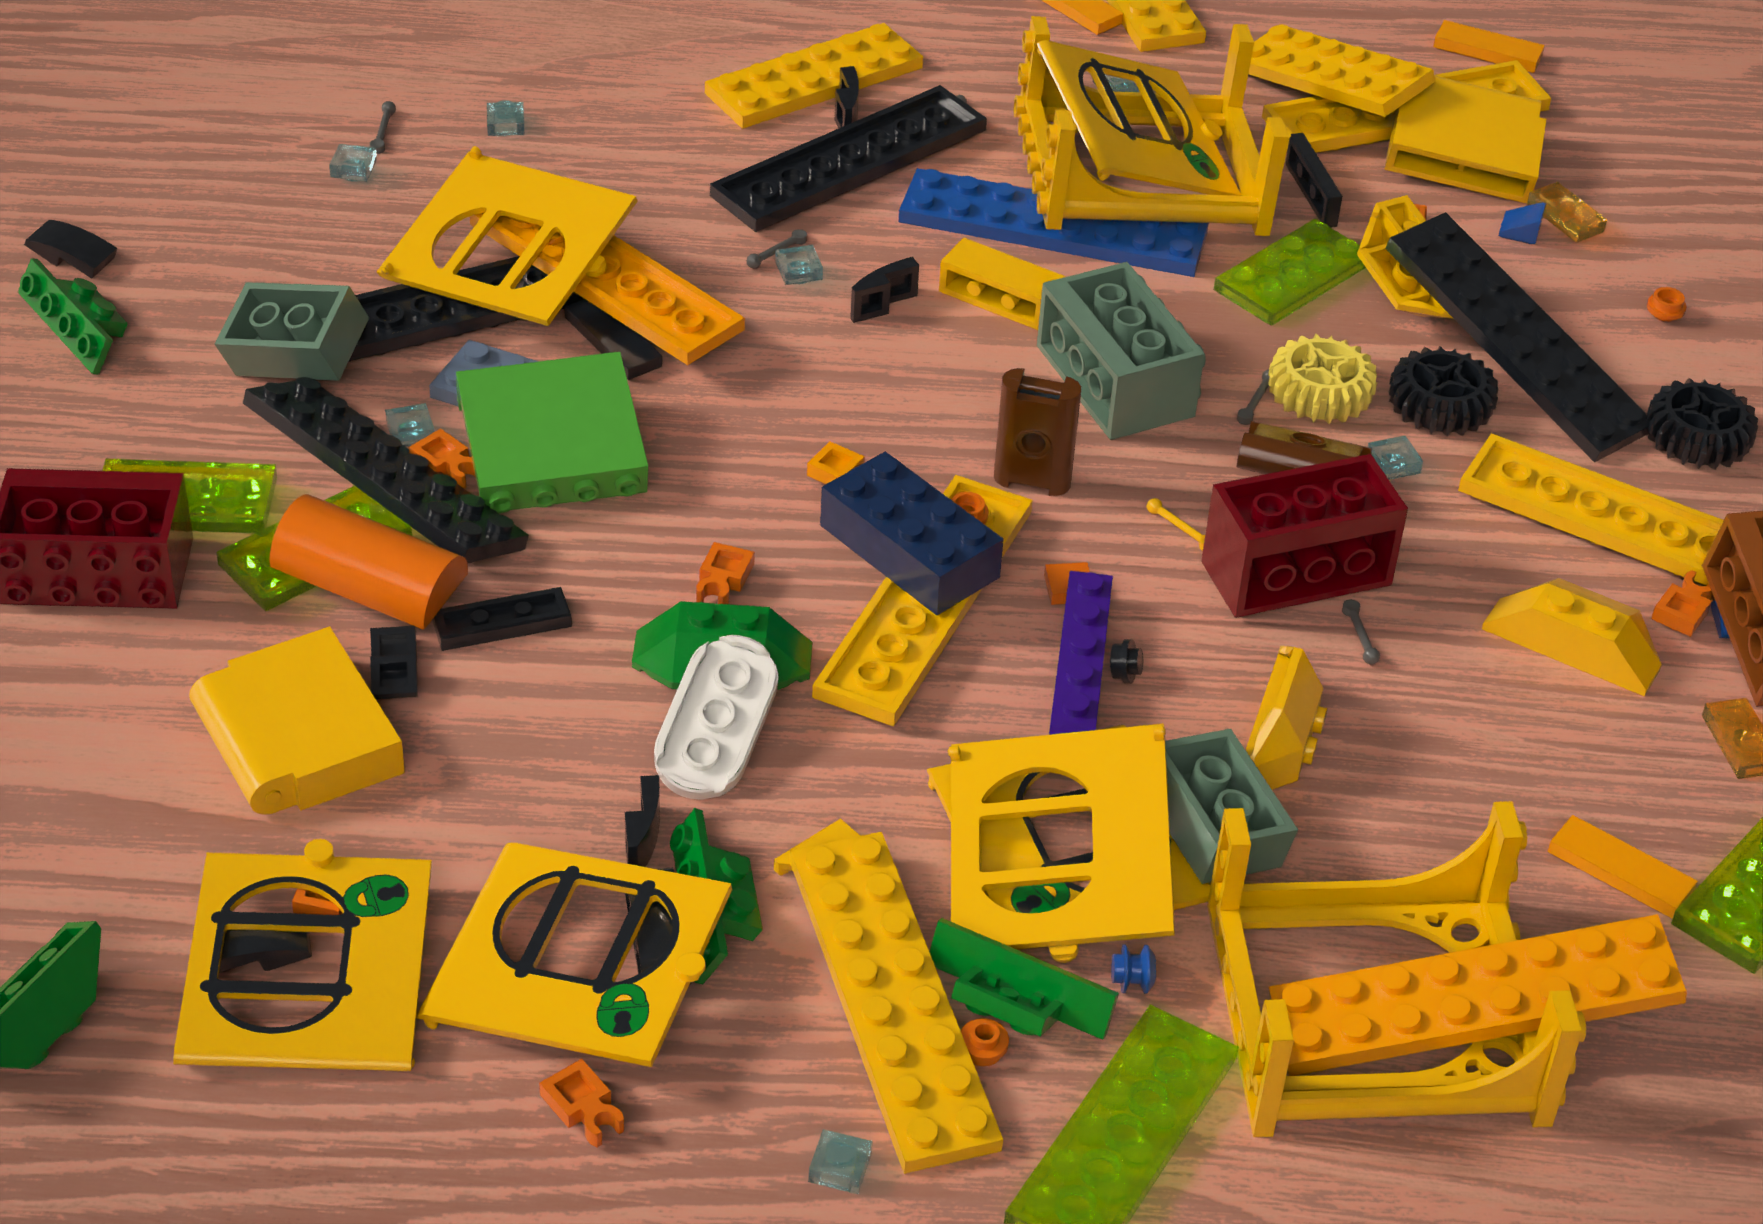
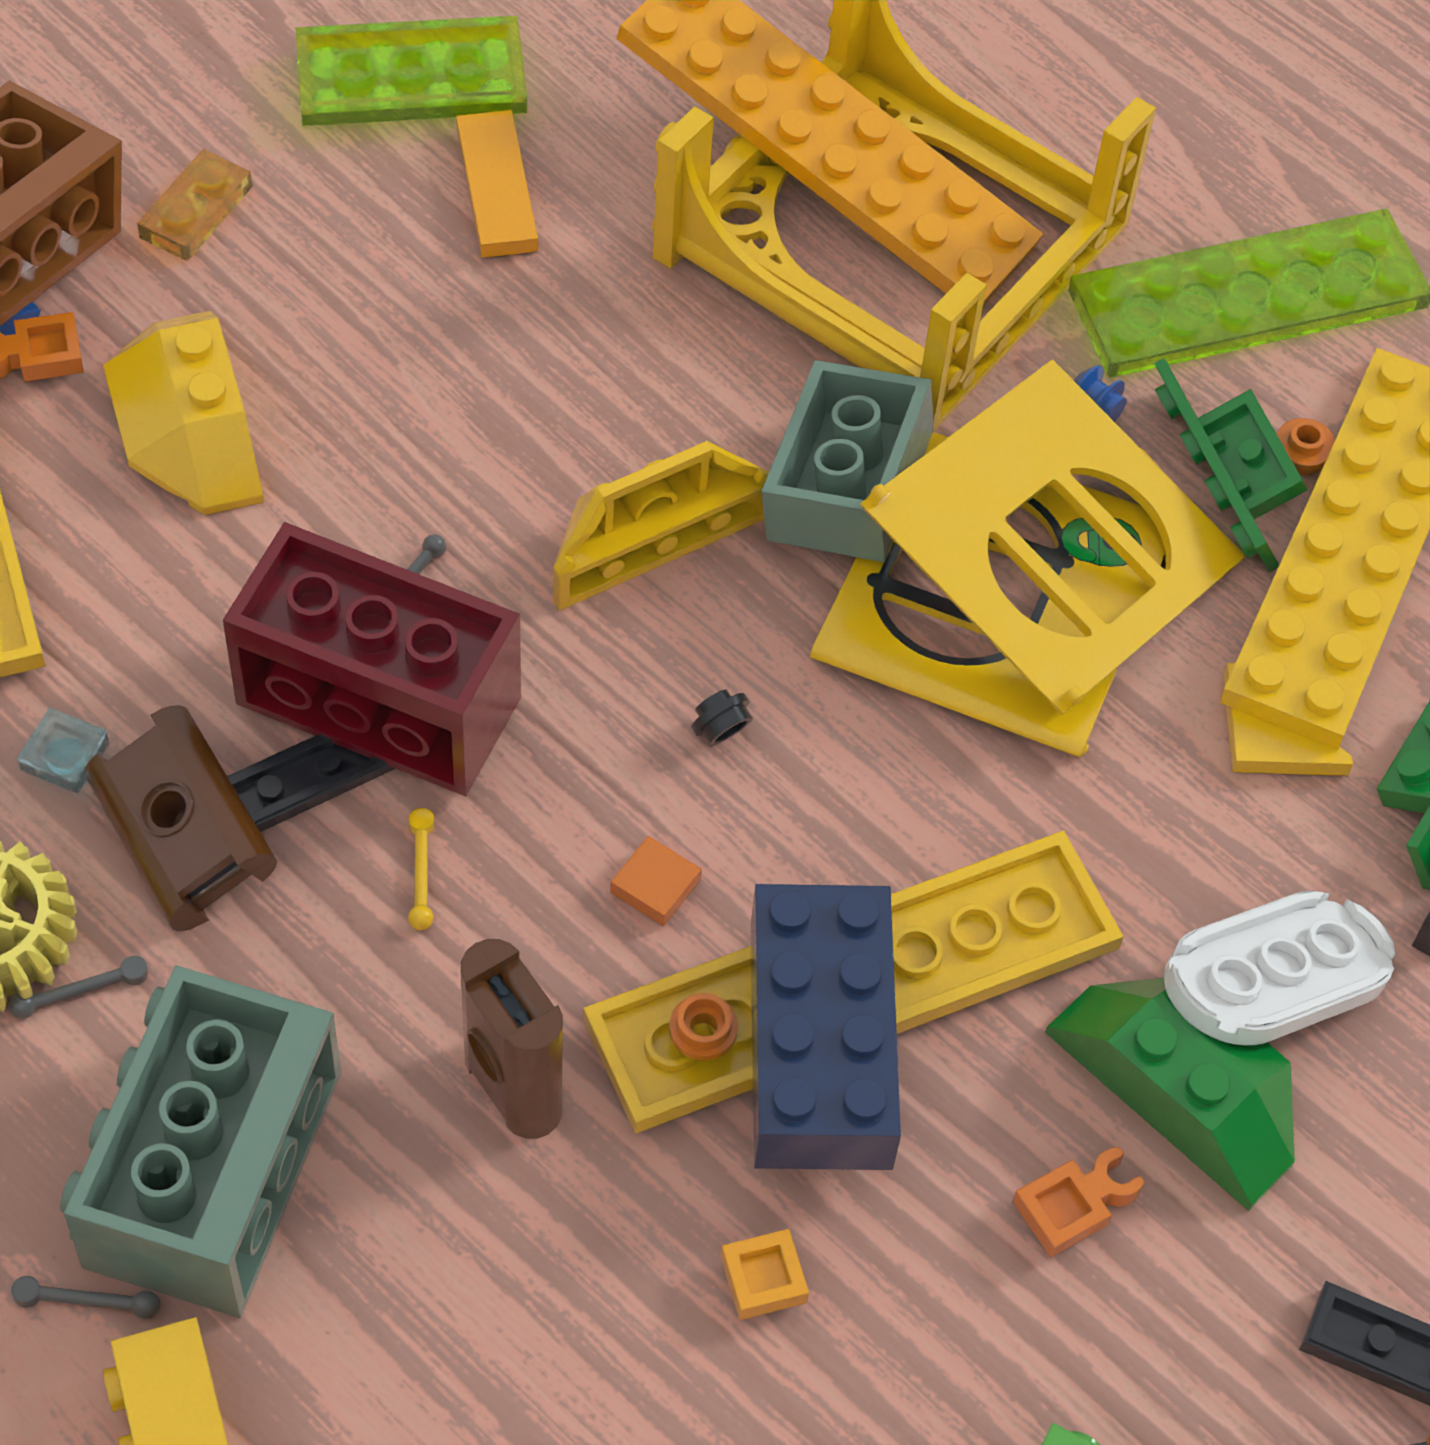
camera: 140 degrees left, 15 degrees up
(1081, 653) = (790, 735): dark purple plate -> none

